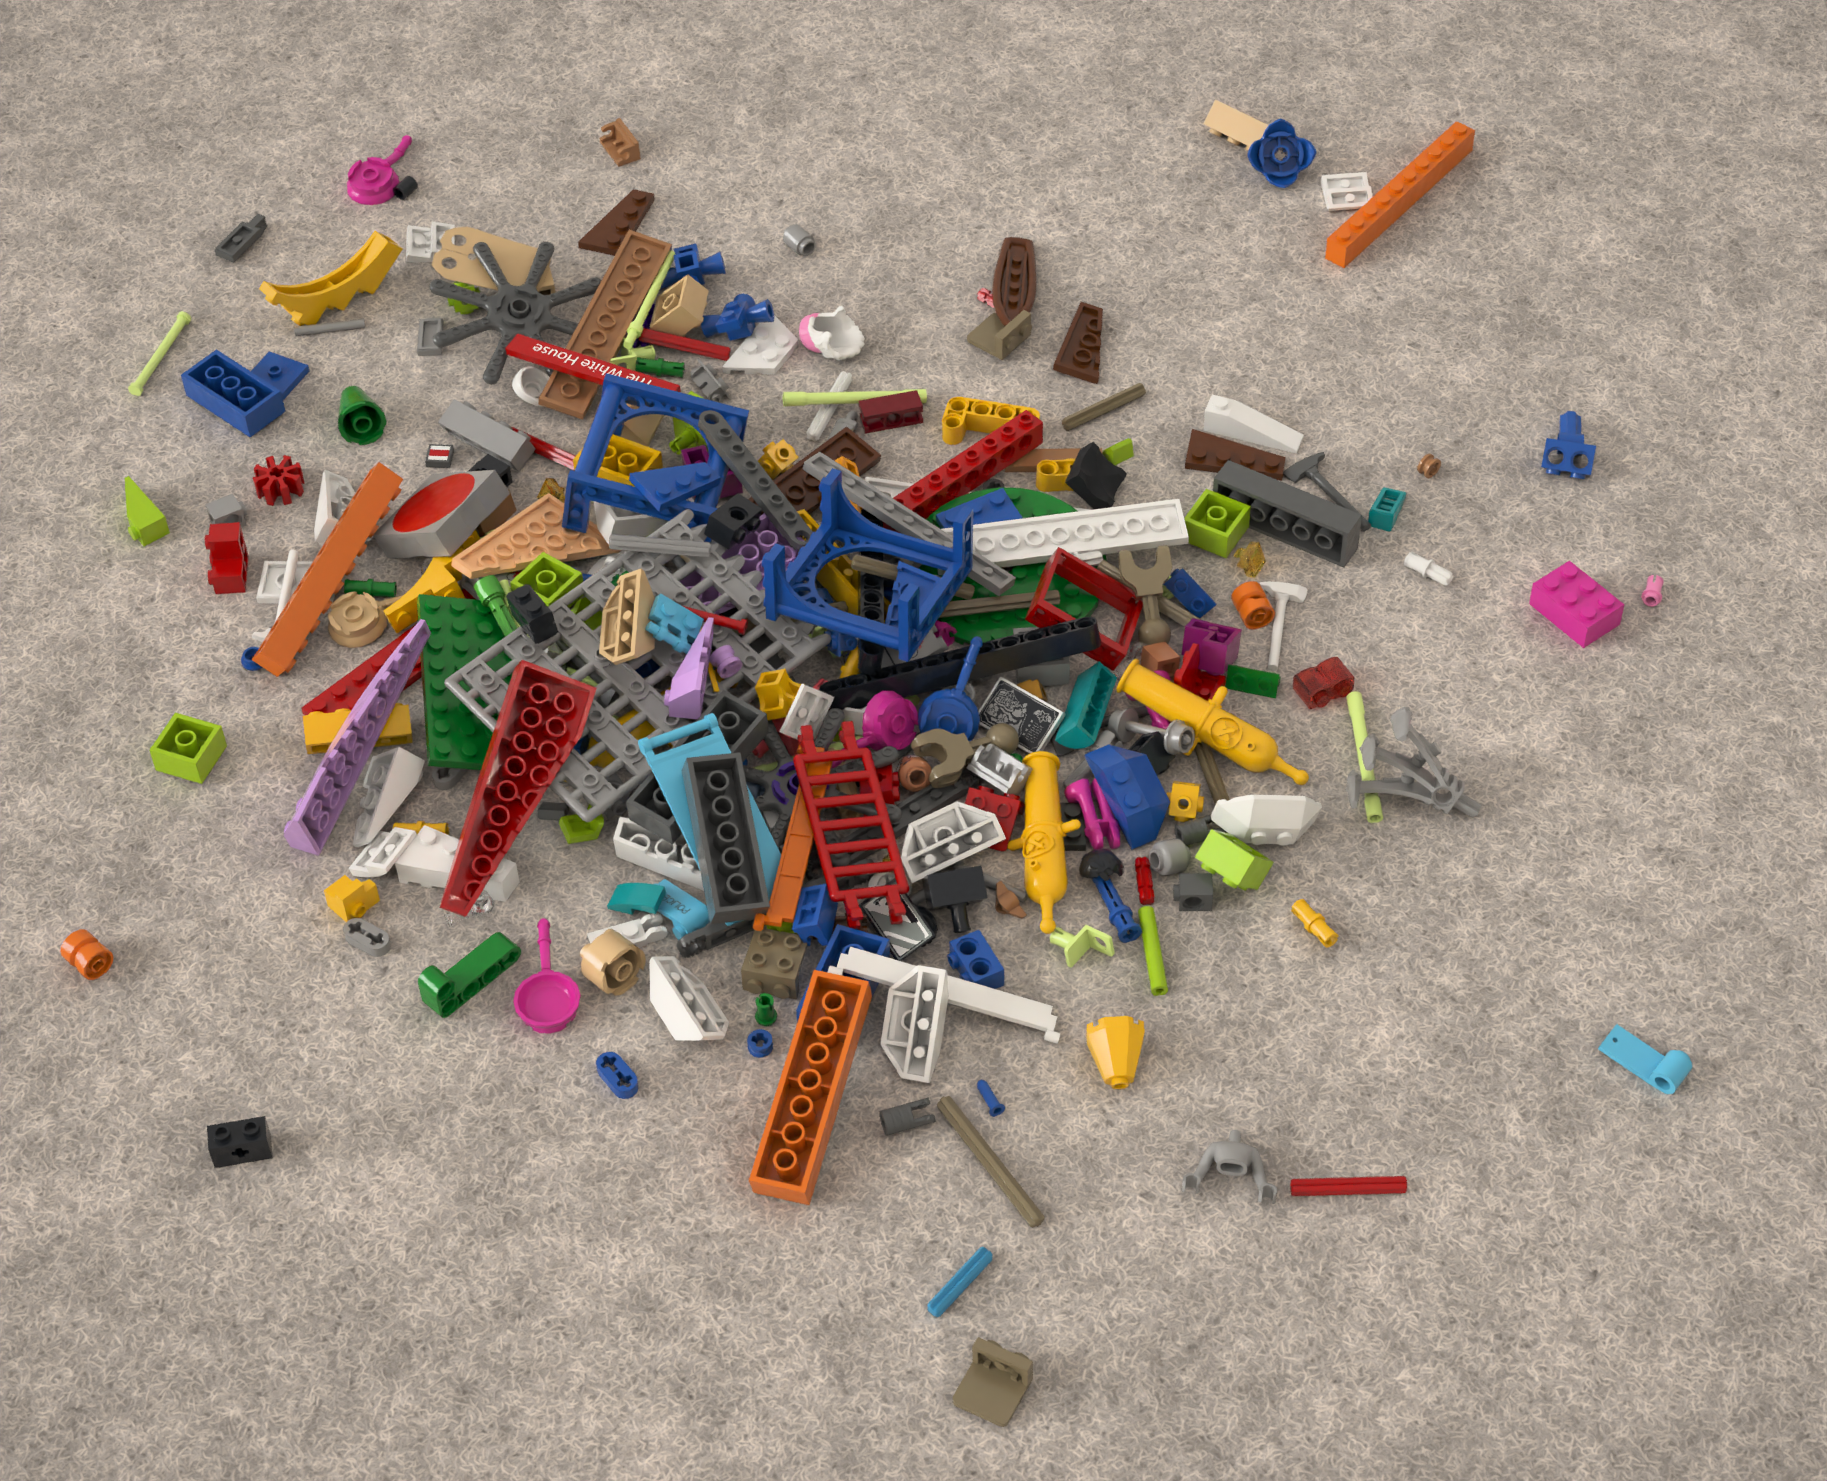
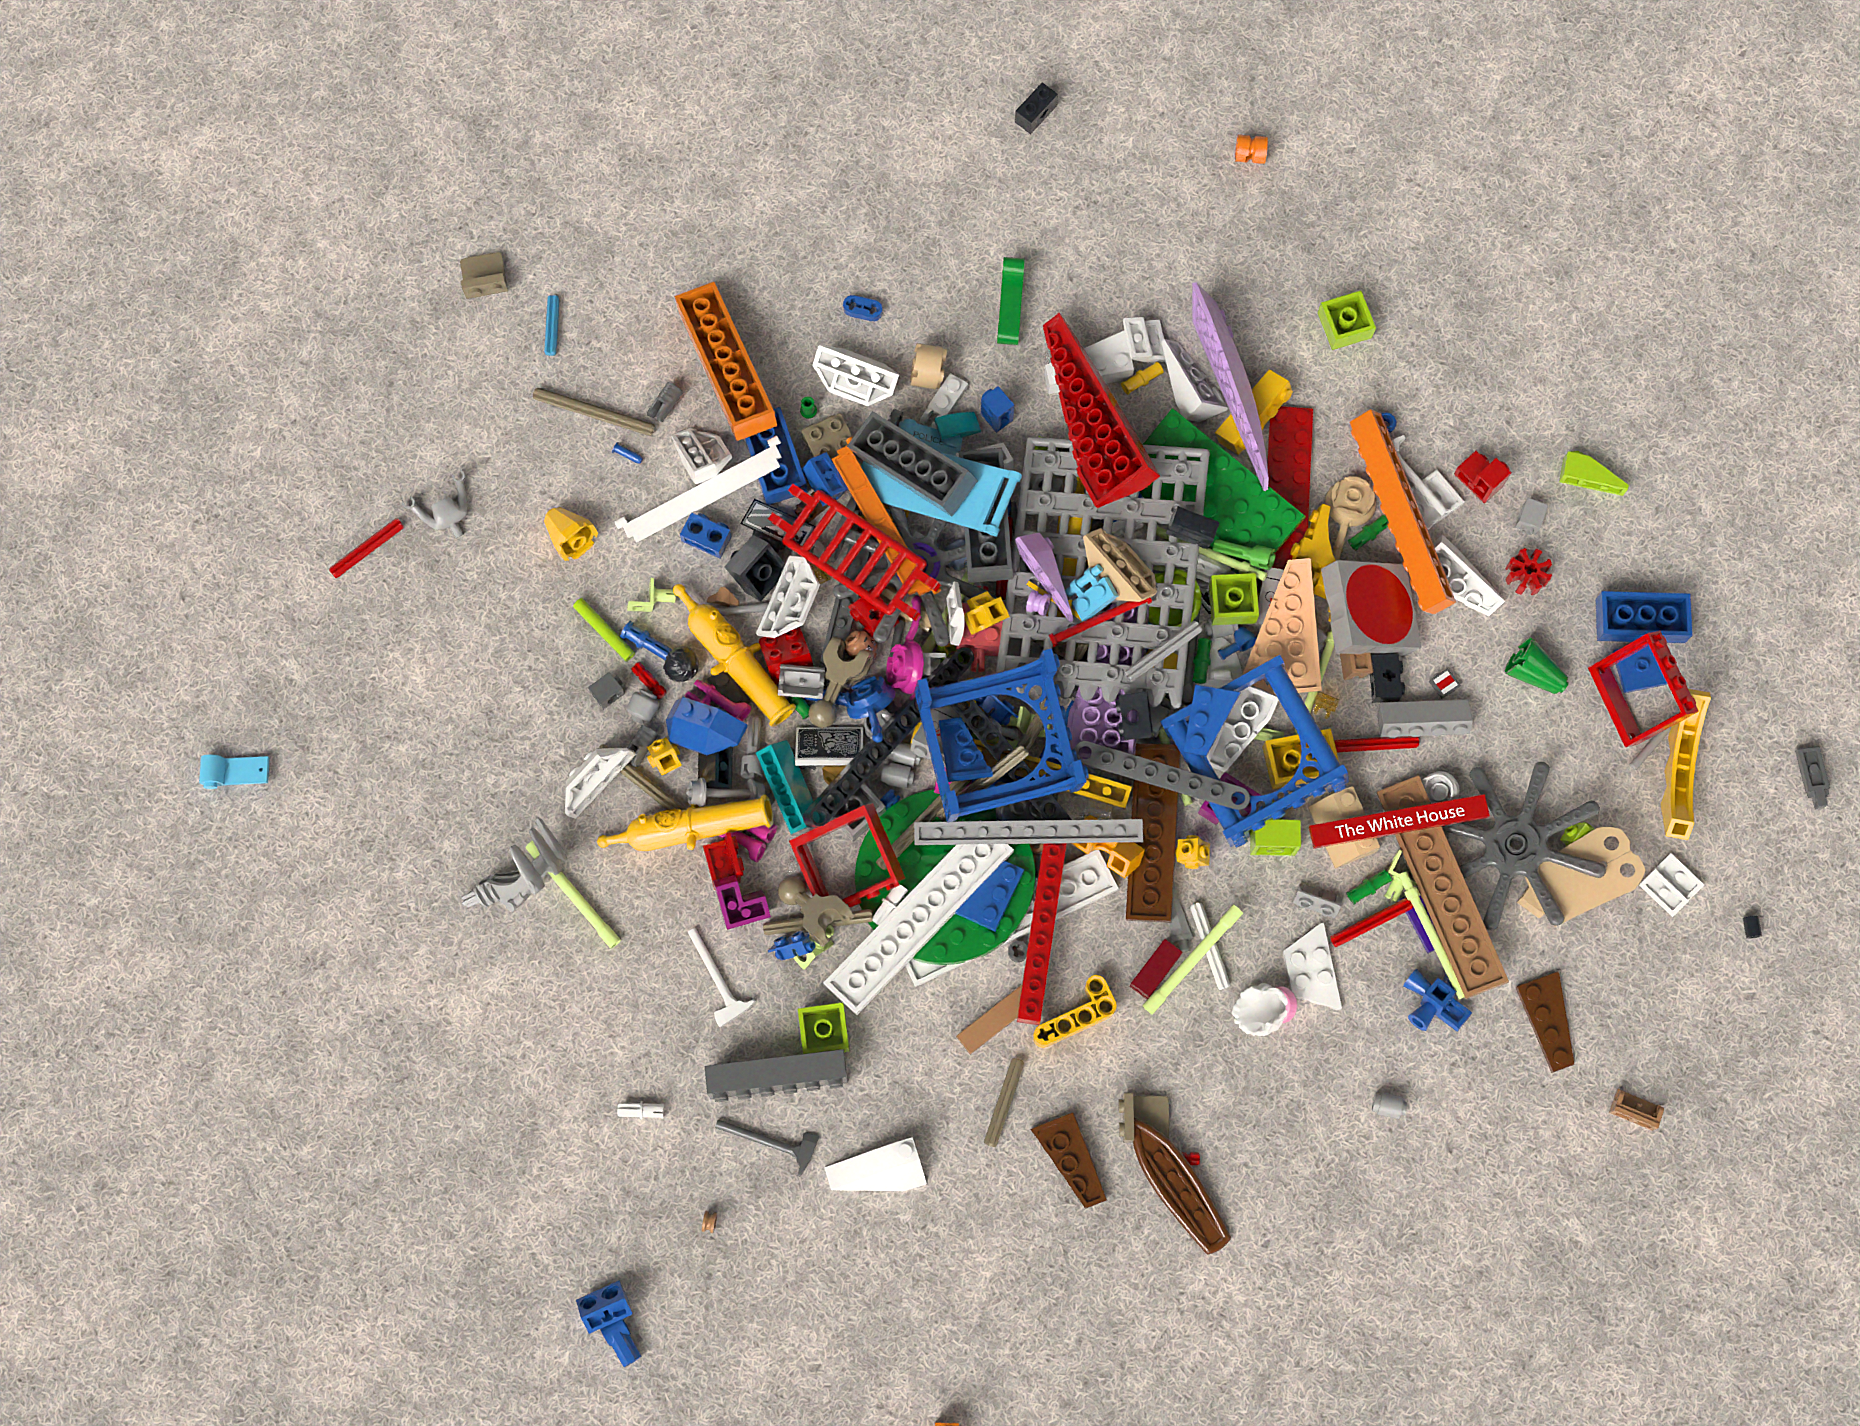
camera: 140 degrees right, 25 degrees up
(137, 387) = (1745, 623): yellowish green bar -> none
(324, 311) = (1615, 700): none -> red window
(351, 898) = (1135, 297): yellow brick -> none
(369, 933) = (1101, 286): light grey beam -> none
(374, 179) = (1786, 917): dark pink piece -> none
(427, 329) = (1569, 789): light grey tile -> none
(549, 997) = (948, 319): dark pink piece -> none
(586, 878) = (997, 408): none -> blue brick
(680, 307) = (1400, 942): tan brick -> none
(738, 318) = (1351, 969): blue brick -> none
(753, 1039) = (797, 383): blue bush -> none
(1053, 474) = (977, 1000): yellow piece -> none
(1095, 477) = (944, 1006): black brick -> none
(1119, 452) = (958, 1063): lime slope -> none
(1160, 657) = (770, 869): nougat panel -> none
(1211, 452) = (876, 1118): reddish brown wing -> none
(1234, 860) = (591, 722): lime brick -> none
(1251, 559) = (776, 1018): clear yellow tile -> none
(1252, 681) = (687, 907): green hinge -> none
(1253, 605) = (747, 976): orange wheel -> none
(1314, 923) = (513, 725): yellow pin -> none
(1324, 682) = (642, 937): clear red brick -> none
(1384, 511) = (709, 1136): teal slope -> none
(1576, 604) = (507, 1149): dark pink brick -> none
(1652, 594) = (460, 1209): bright pink pin -> none

